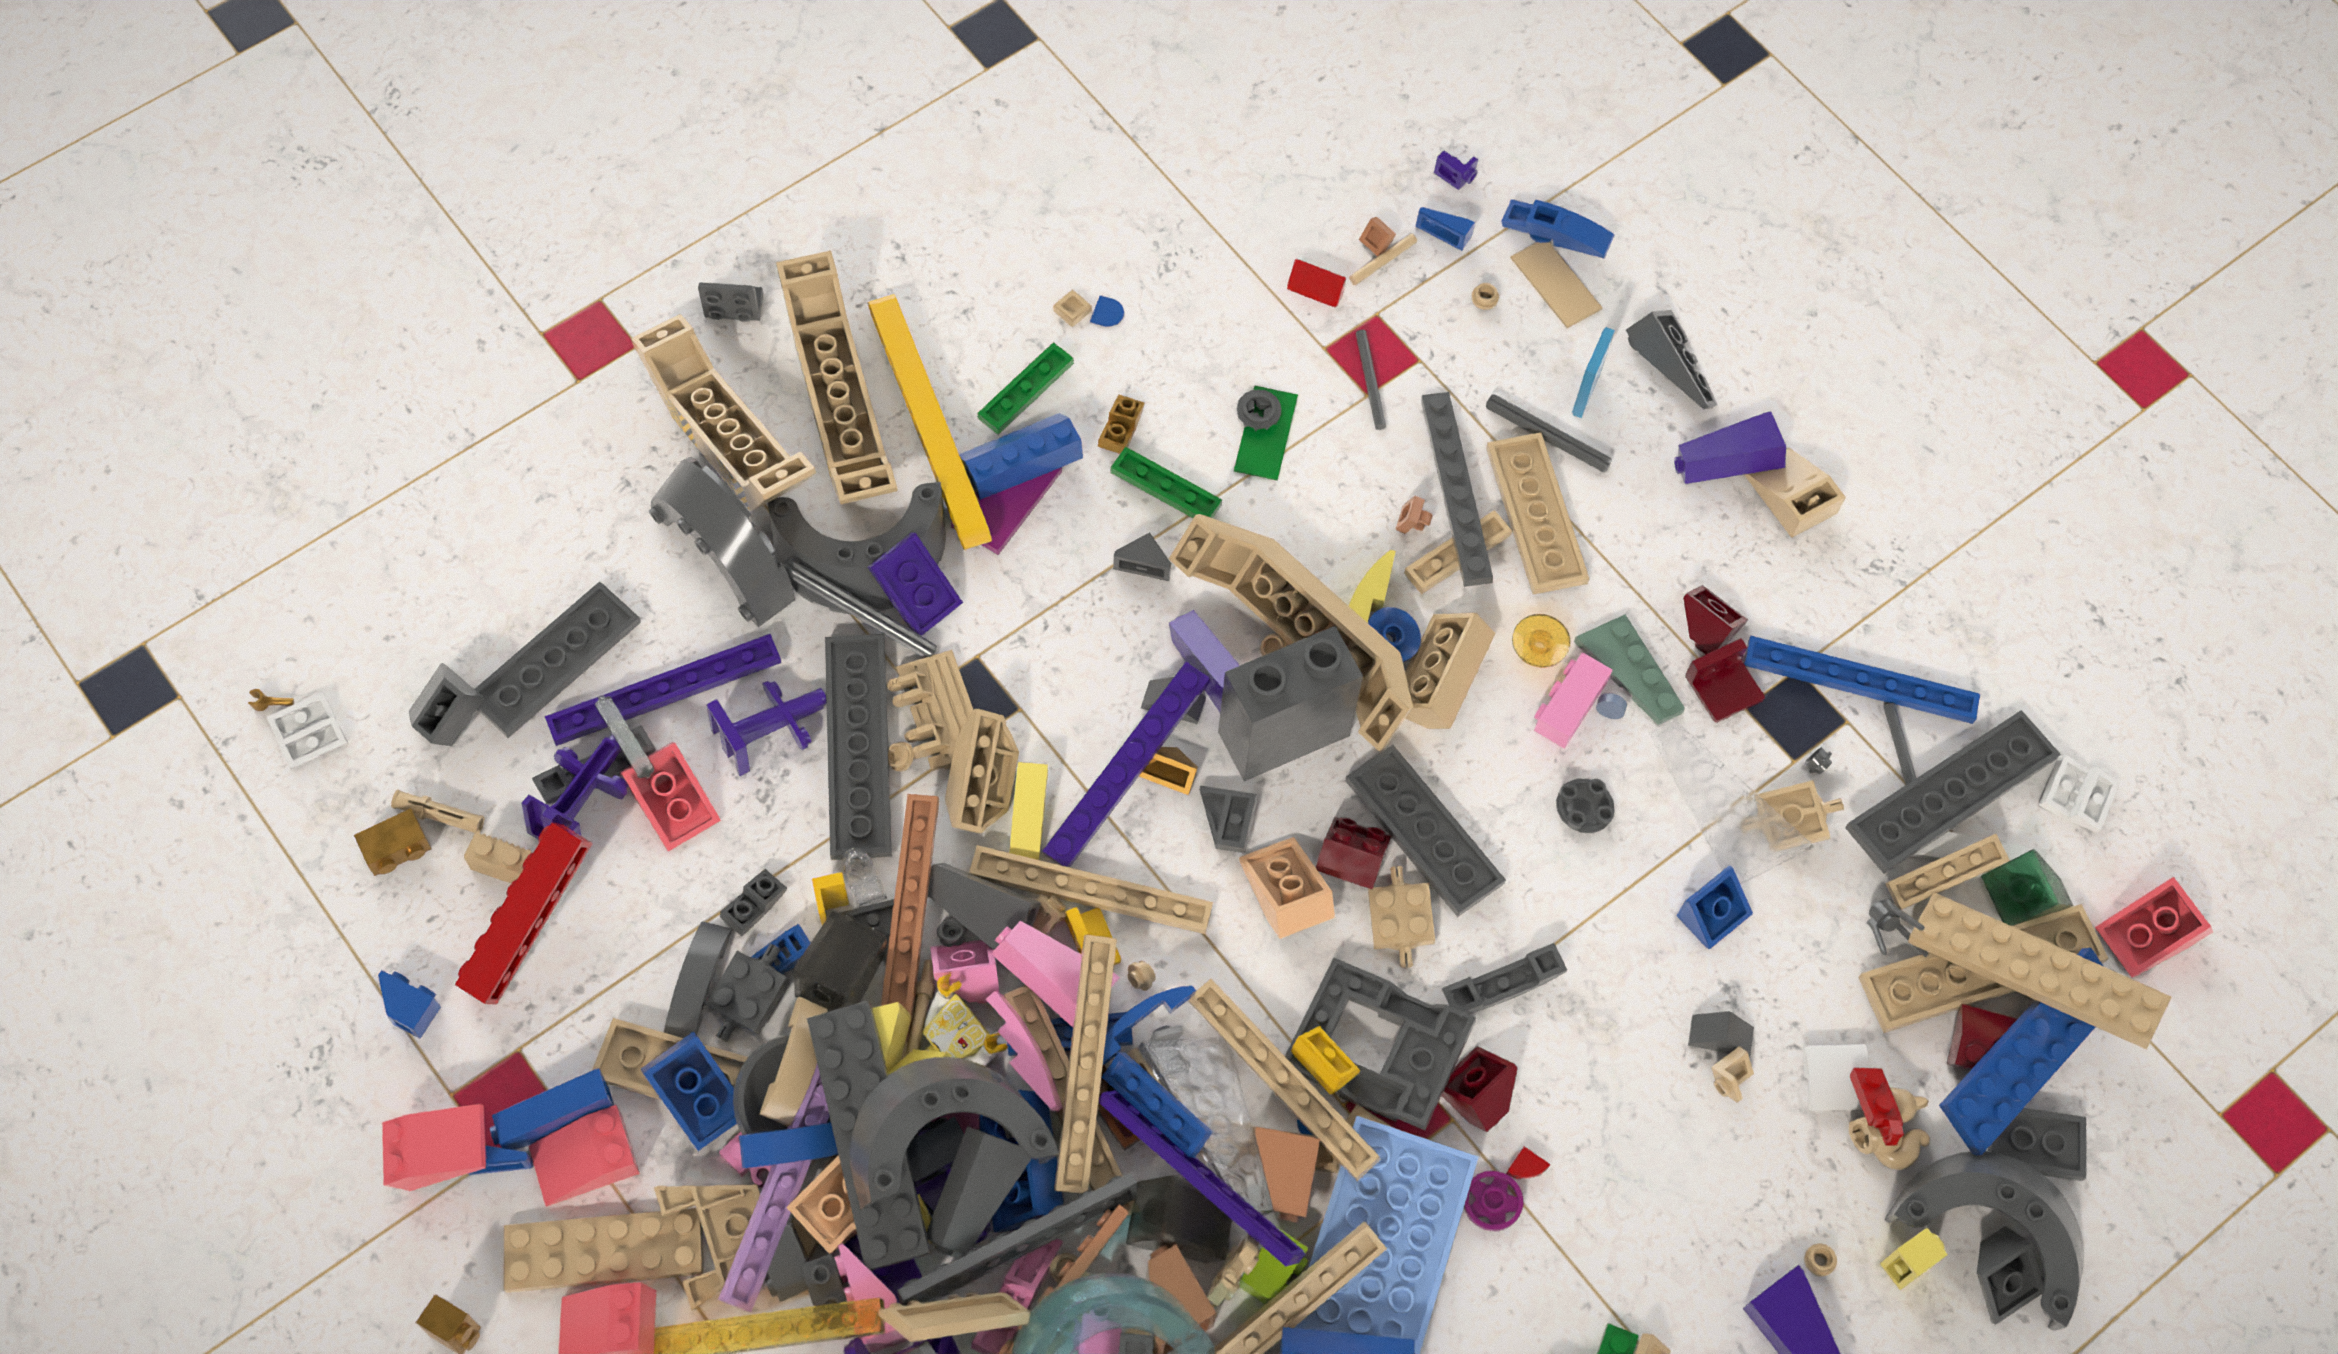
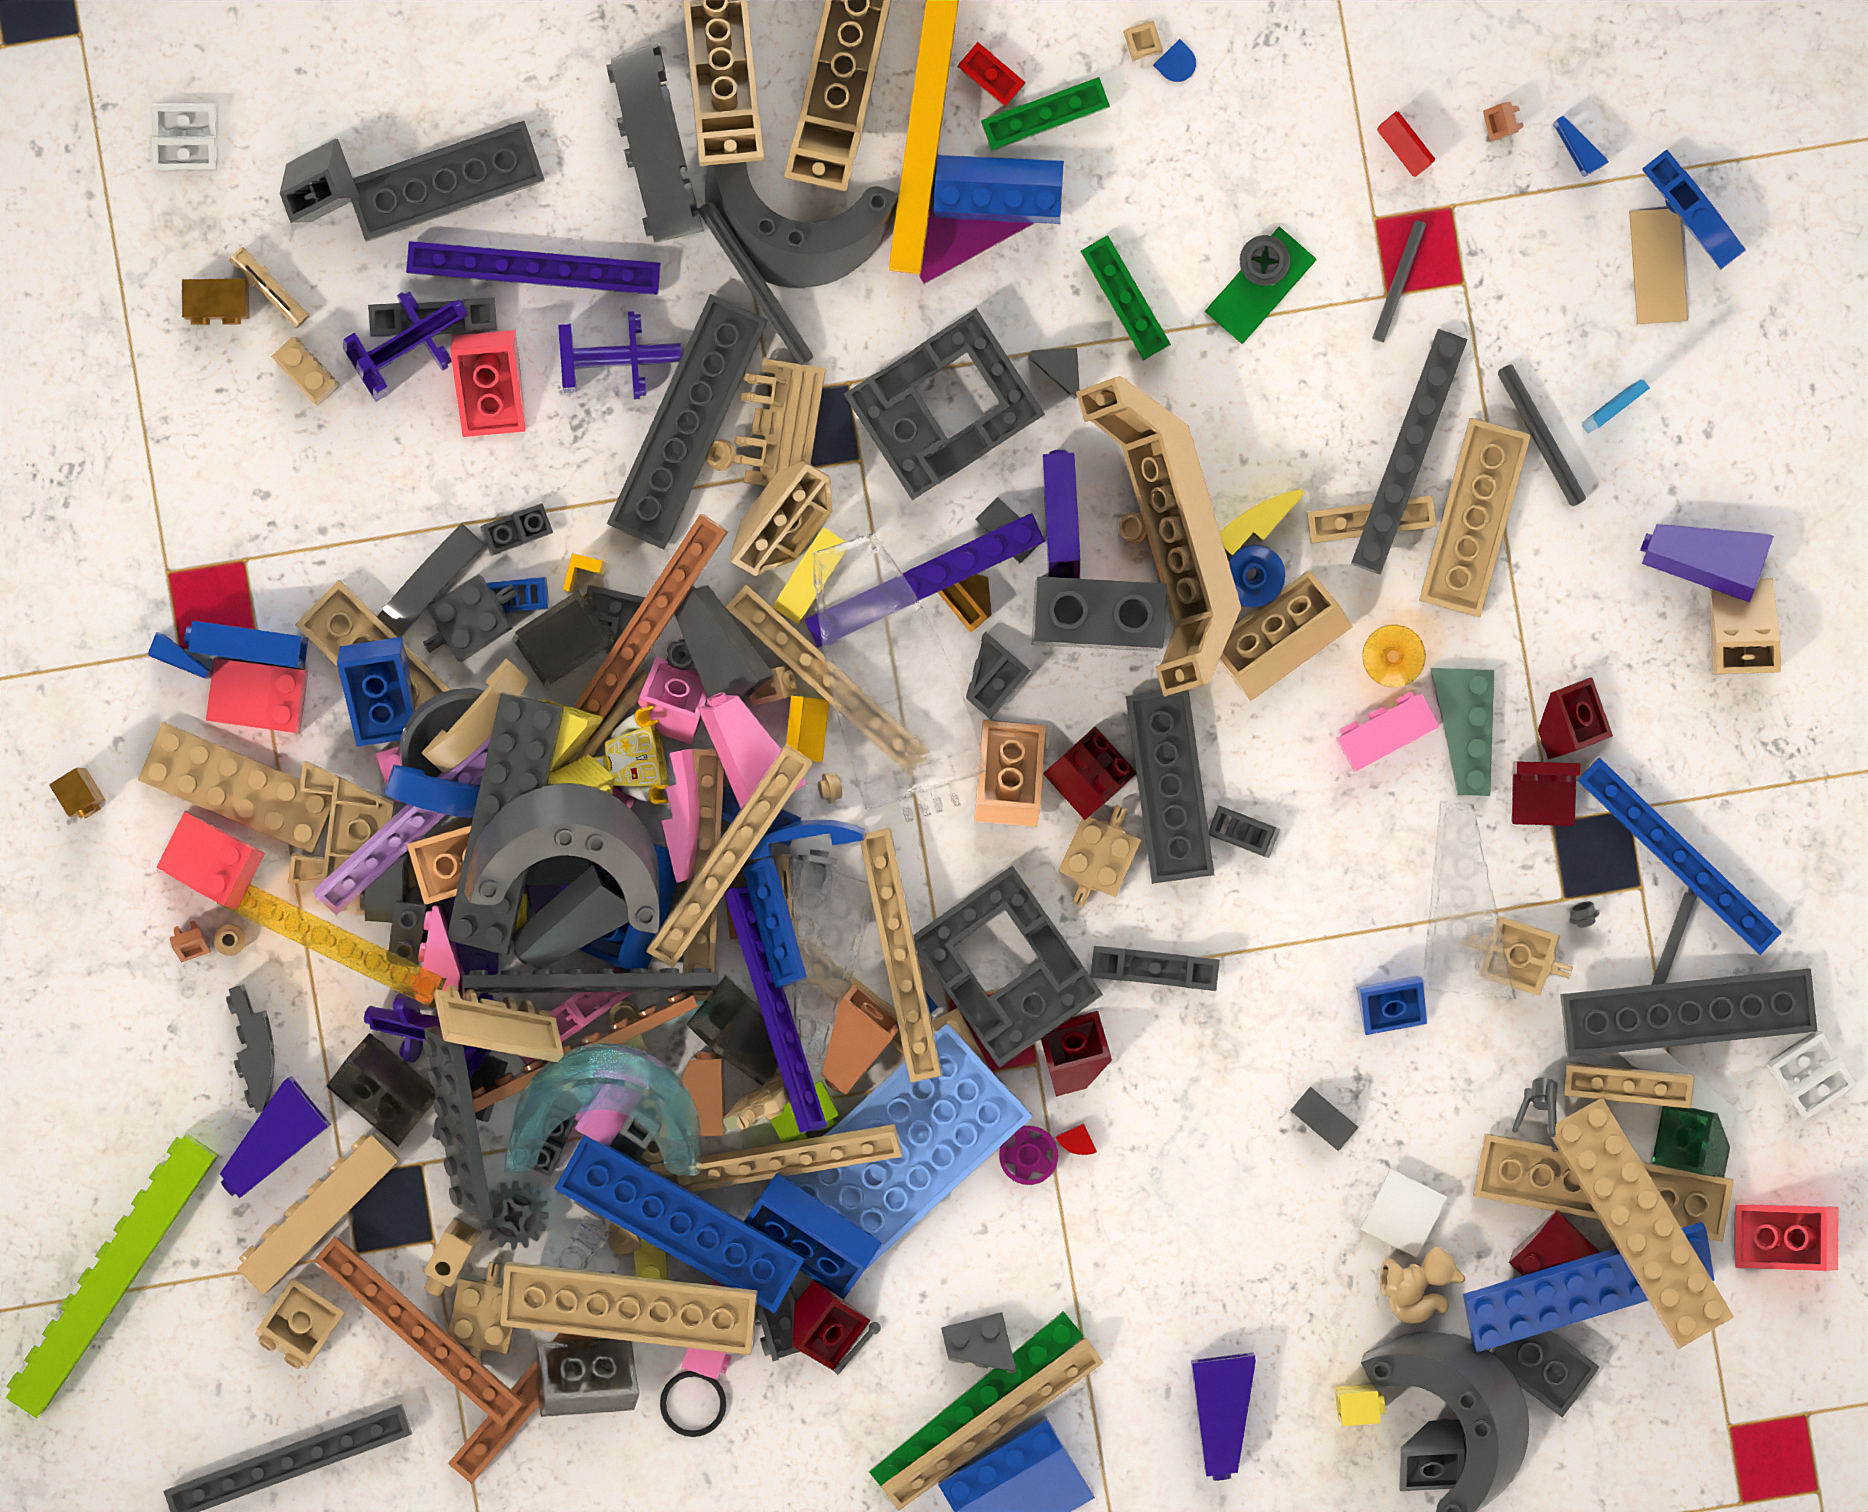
camera: 30 degrees right, 25 degrees up
(264, 701) = (158, 83): pearl gold hand -> none
(406, 1005) = (161, 469): blue slope -> none
(433, 1146) = (130, 624): coral slope -> none
(523, 913) = (301, 444): red brick -> none
(624, 737) = (469, 313): clear smoke axle -> none
(863, 883) = (624, 562): clear piece -> none
(915, 584) = (821, 287): dark purple tile -> none
(967, 380) = (991, 74): none -> red plate
(1049, 660) = (905, 426): none -> dark grey piece
(1121, 424) = (1119, 203): pearl gold slope -> none
(1144, 853) = (891, 681): none -> clear windscreen
(1324, 1059) = (948, 958): yellow slope -> none
(1383, 259) = (1494, 147): tan bar -> none
(1413, 516) = (1348, 458): nougat tile -> none
(1454, 171) = (1627, 79): dark purple bracket -> none
(1485, 290) = (1581, 243): tan plate -> none
(1519, 845) = (1269, 840): none -> dark grey slope
(1585, 805) = (1335, 840): dark grey dish -> none
(1611, 706) = (1421, 756): sand blue tile -> none
(1662, 343) = (1716, 407): dark grey wedge -> none
(1732, 1072) = (1307, 1158): tan bracket -> none
(1826, 1253) = (1283, 1368): tan plate -> none
(1878, 1103) = (1414, 1260): red hinge -> none

